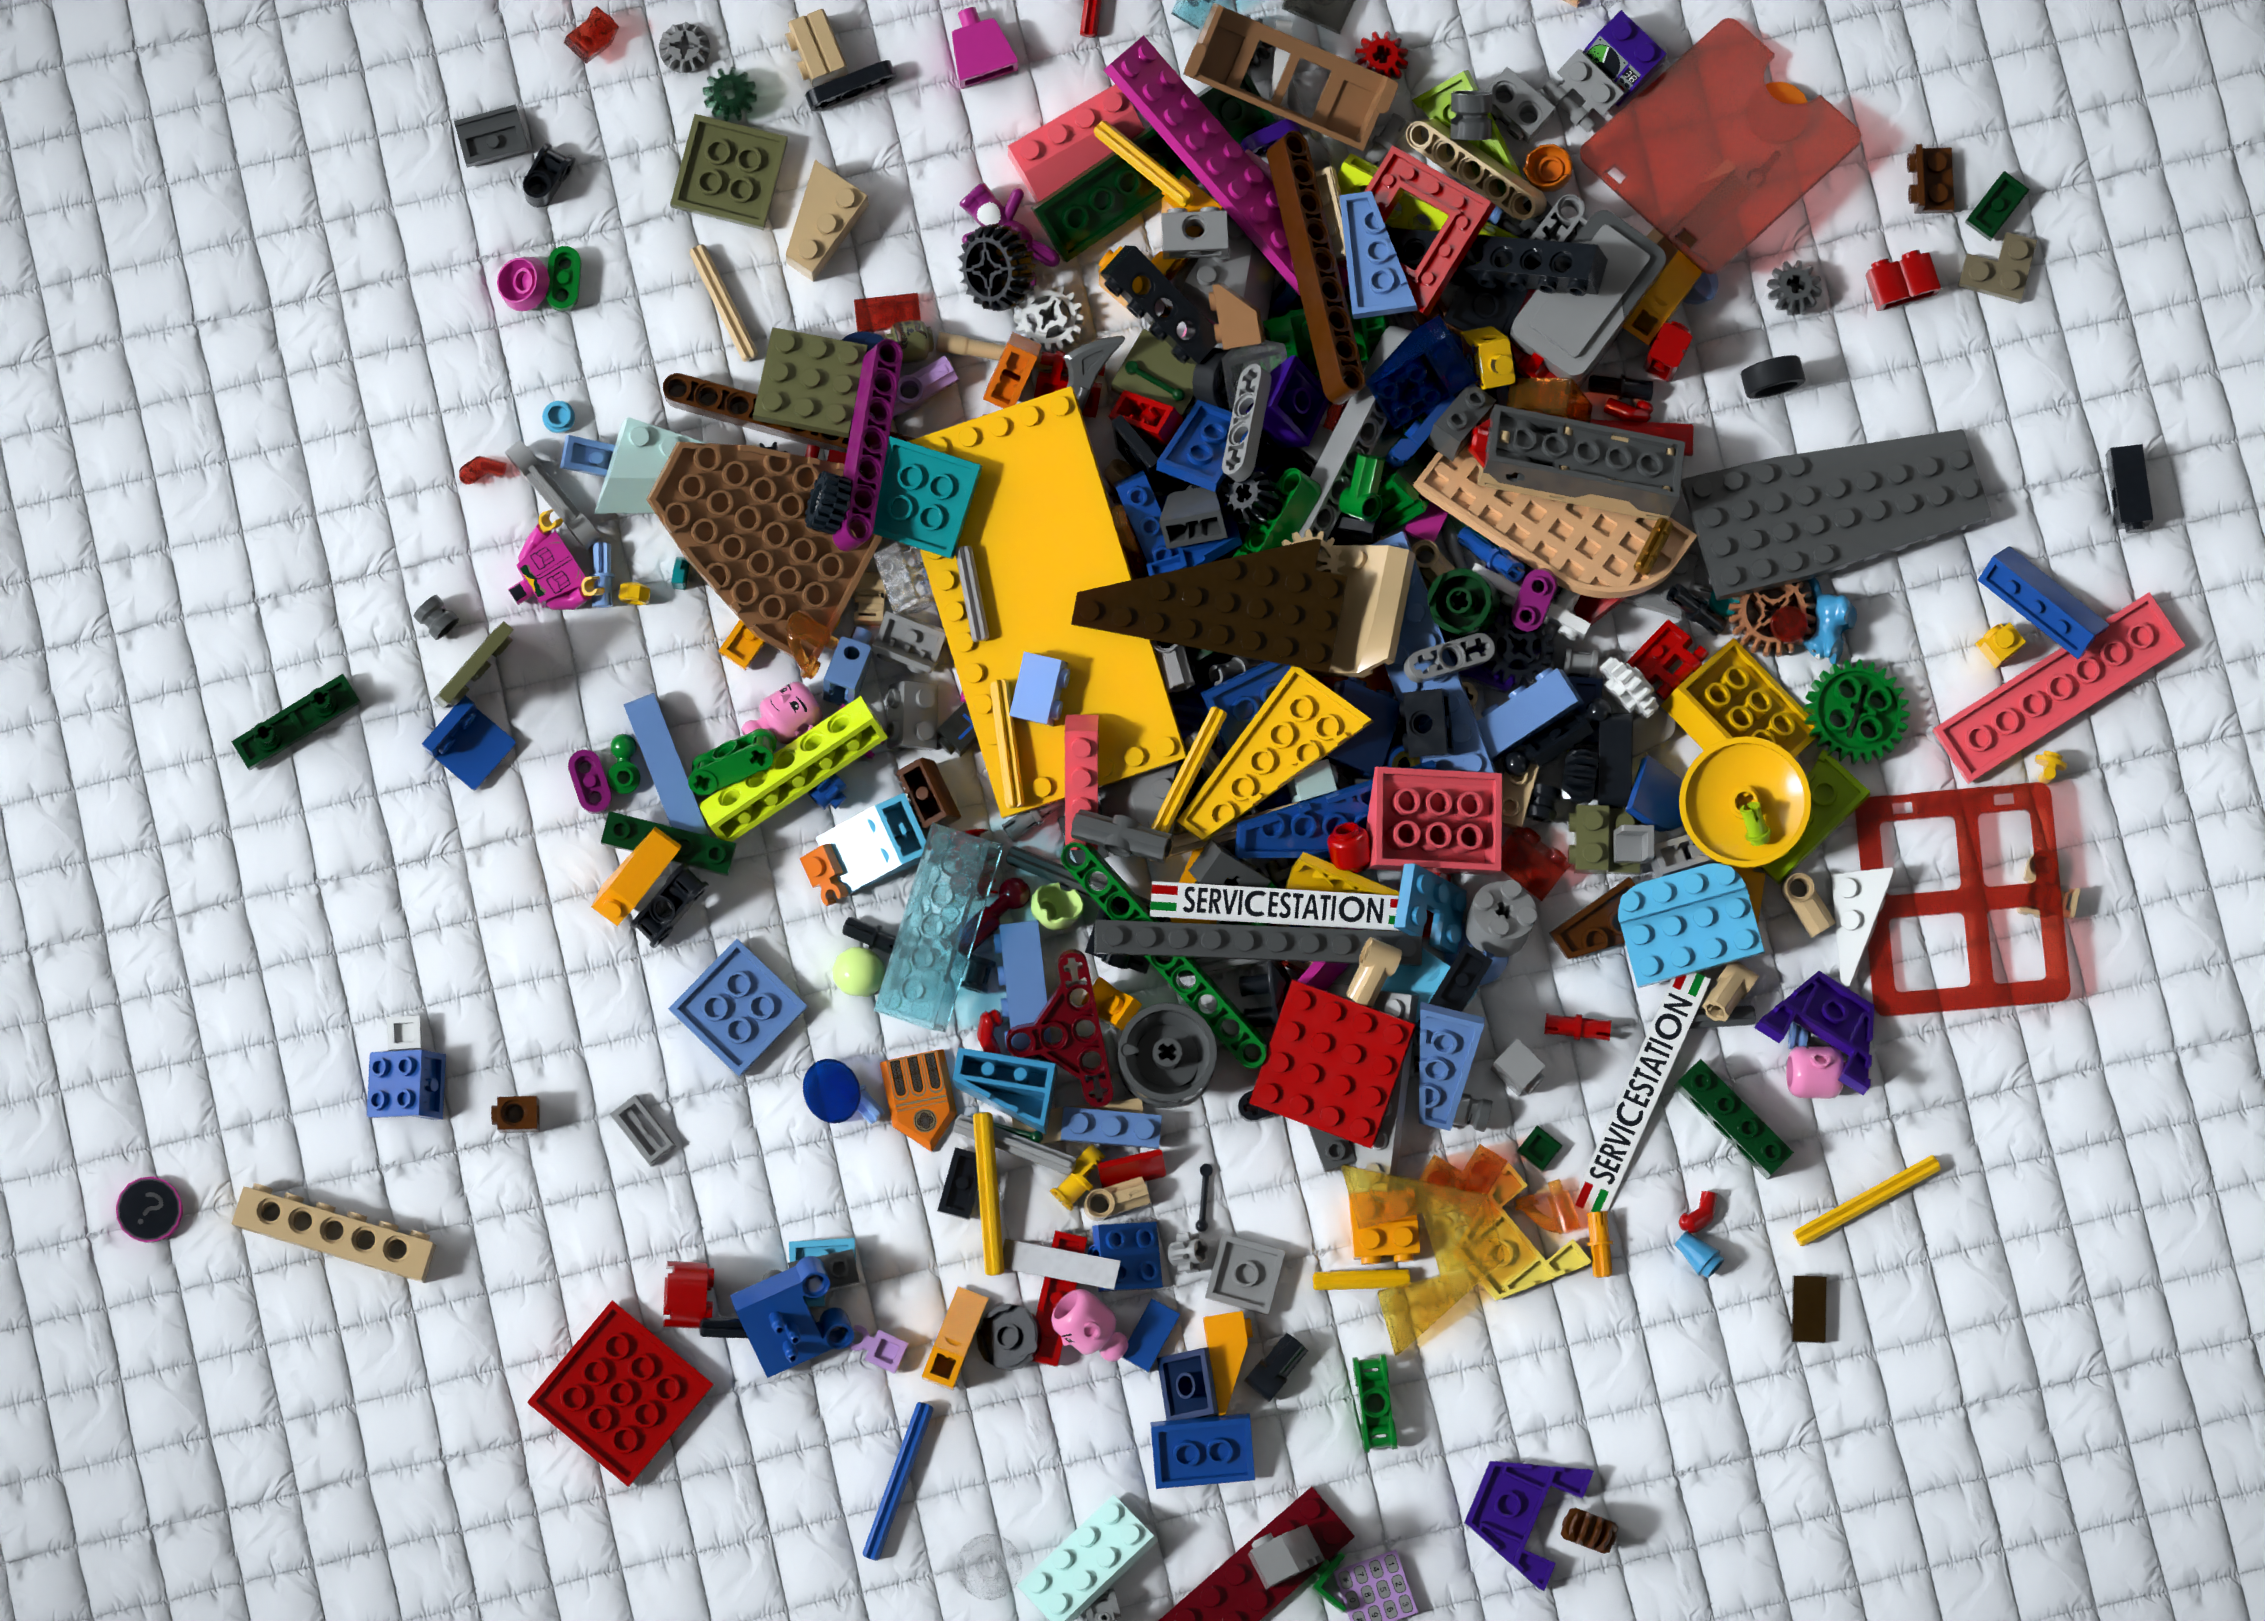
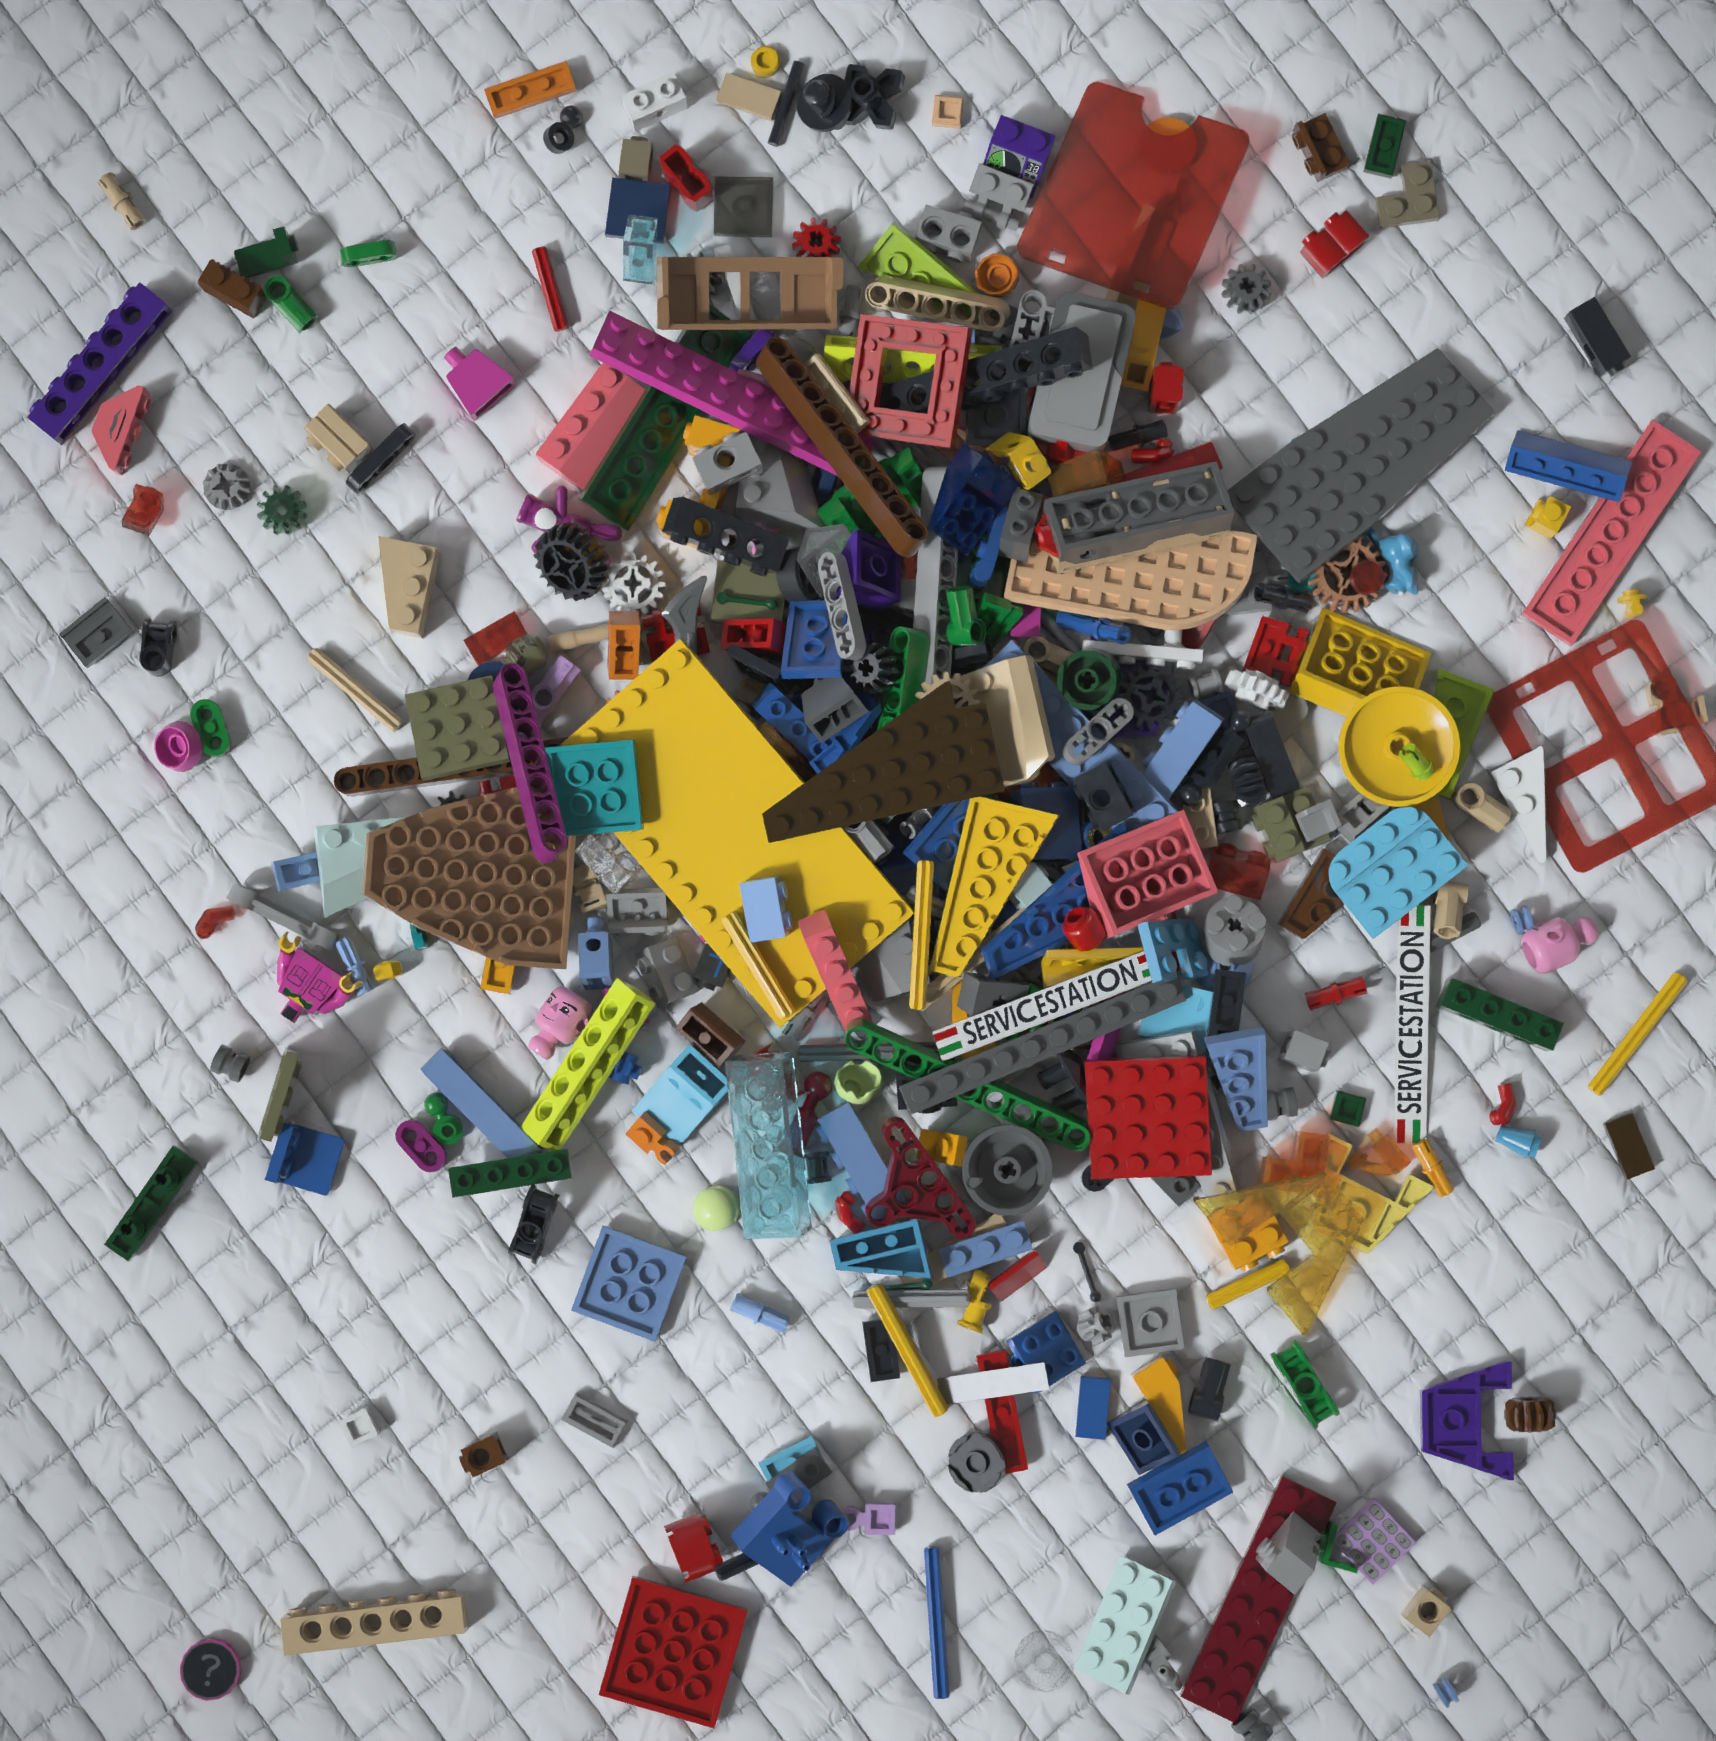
camera: 15 degrees left, 5 degrees up
(406, 1084) = (380, 1470): blue bracket -> none
(558, 417) = (258, 847): medium azure plate -> none
(635, 876) = (494, 1214): light orange slope -> none
(729, 171) = (310, 576): olive plate -> none
(732, 761) = (533, 1080): green piece -> none
(803, 627) = (552, 941): clear orange plant -> none
(828, 502) = (517, 828): black bush -> none
(831, 1091) = (738, 1320): clear blue piece -> none
(869, 934) = (712, 1173): black axle -> none
(920, 1096) = (813, 1290): orange tile -> none
(954, 1338) = (932, 1484): light orange slope -> none
(972, 593) = (673, 850): light grey axle -> none
(1088, 1325) = (1039, 1426): bright pink piece -> none
(1119, 1198) = (1018, 1304): tan piece -> none
(1122, 836) = (890, 1005): dark grey piece -> none
(1144, 163) = (657, 420): yellow axle -> none
(1237, 318) = (795, 519): medium nougat slope -> none
(1372, 264) = (891, 427): medium blue wing -> none
(1376, 964) = (1150, 1017): tan piece -> none
(1471, 115) = (915, 259): dark grey wheel -> none
(1533, 600) = (1148, 652): magenta plate -> none
(1653, 546) = (1227, 561): pearl gold axle -> none
(1656, 796) = (1318, 770): blue tile -> none
(1772, 376) = (1262, 372): black tyre -> none
(1829, 701) = (1479, 625): green gear -> none
(1832, 1015) = (1545, 892): dark purple wing -> none

